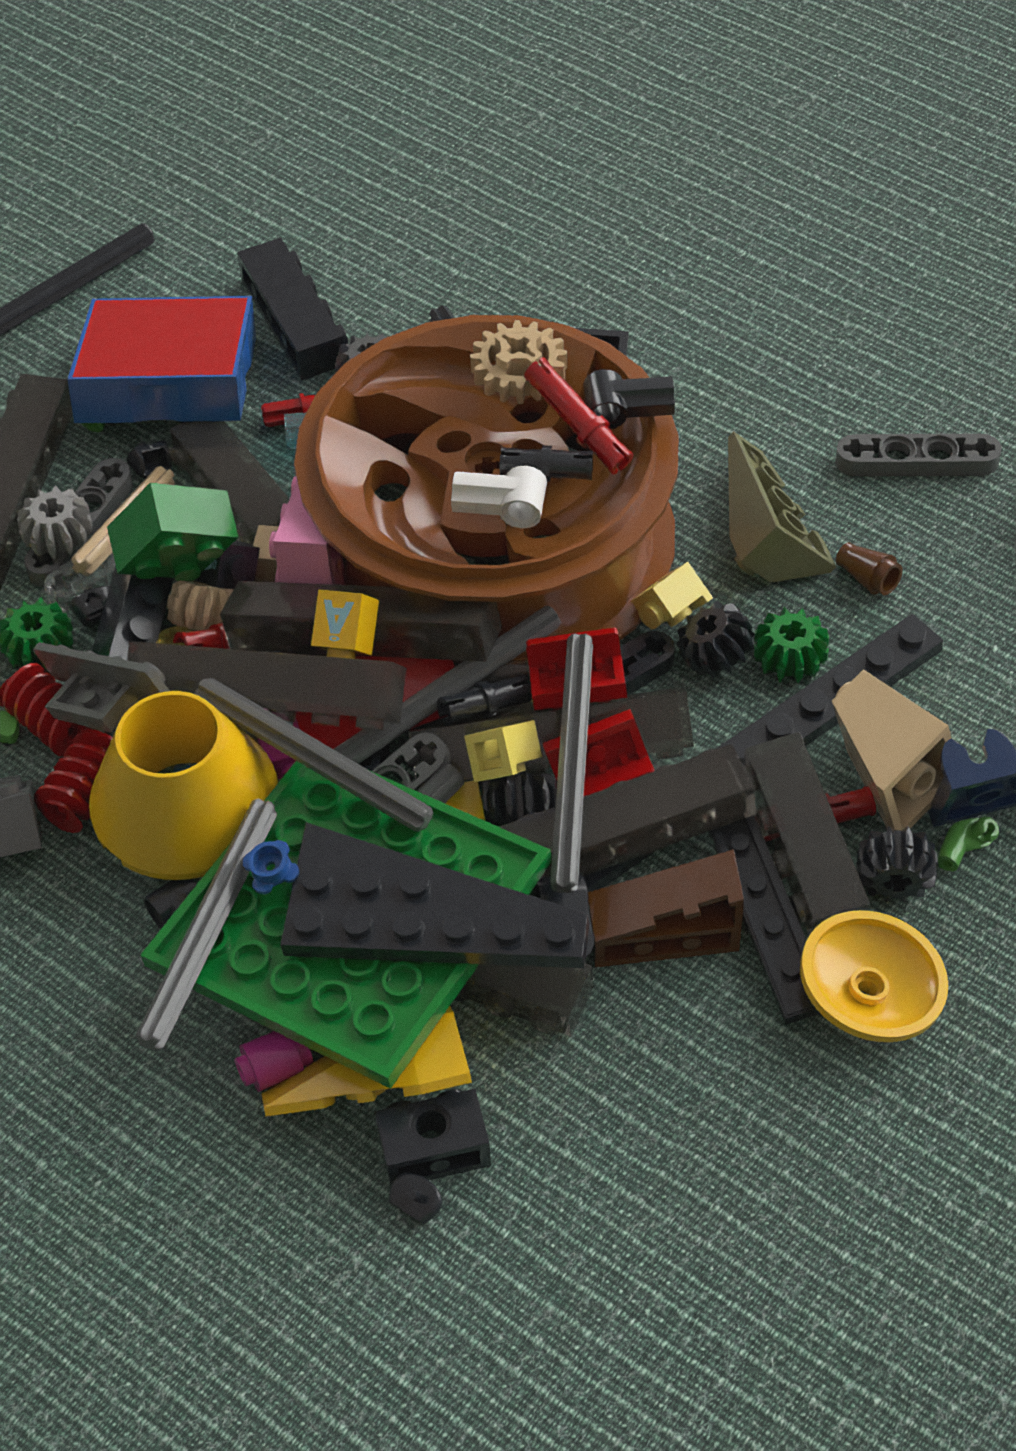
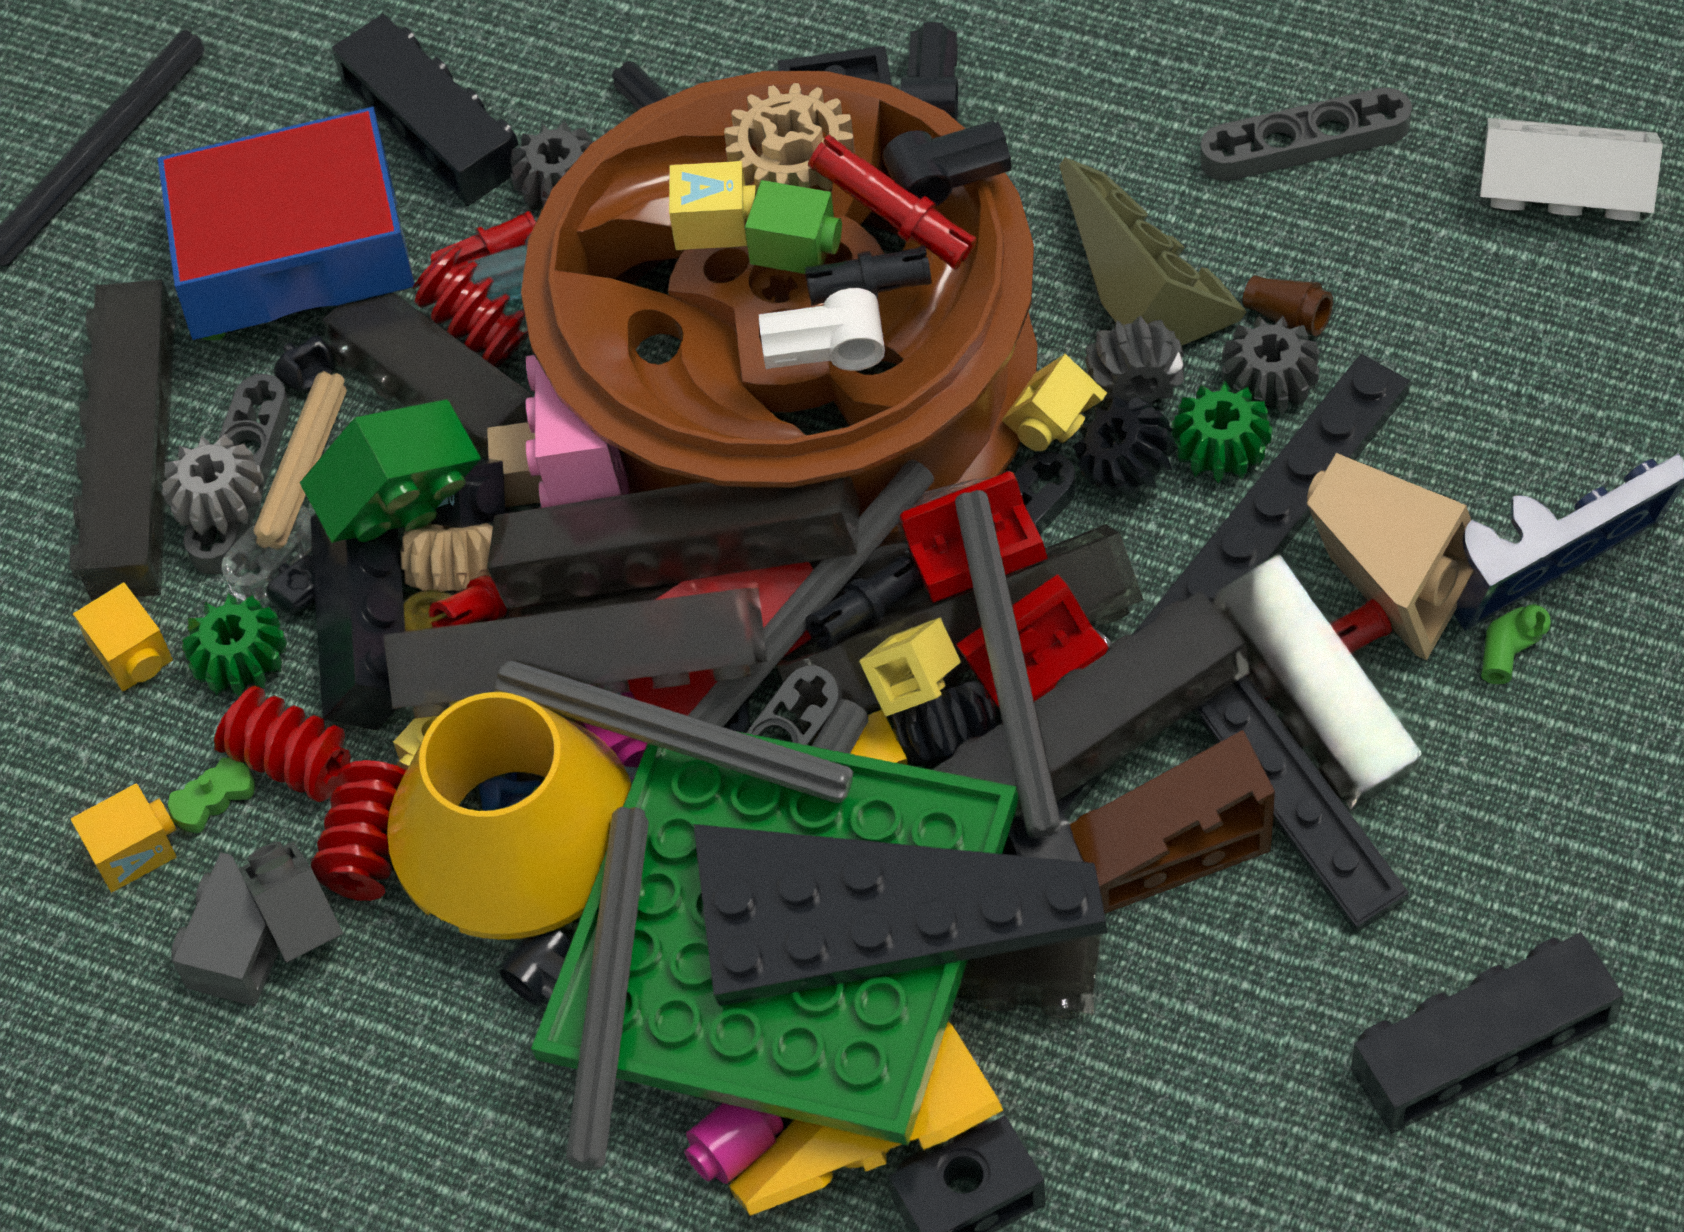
camera: 10 degrees left, 5 degrees up
(96, 686) = (357, 707): dark grey bracket -> none
(265, 855) = (662, 877): blue plate -> none
(270, 440) = (470, 308): none -> red piece
(344, 623) = (665, 550): yellow brick -> none
(448, 392) = (709, 205): none -> light yellow brick
(500, 418) = (791, 227): none -> bright green brick
(659, 350) = (933, 67): none -> black piece
(742, 580) = (1136, 361): none -> dark grey gear
(843, 605) = (1272, 363): none -> dark grey gear
(860, 1117) = (1485, 1031): none -> black brick
(880, 958) = (1459, 823): yellow dish -> none
(897, 863) = (1440, 693): black gear -> none

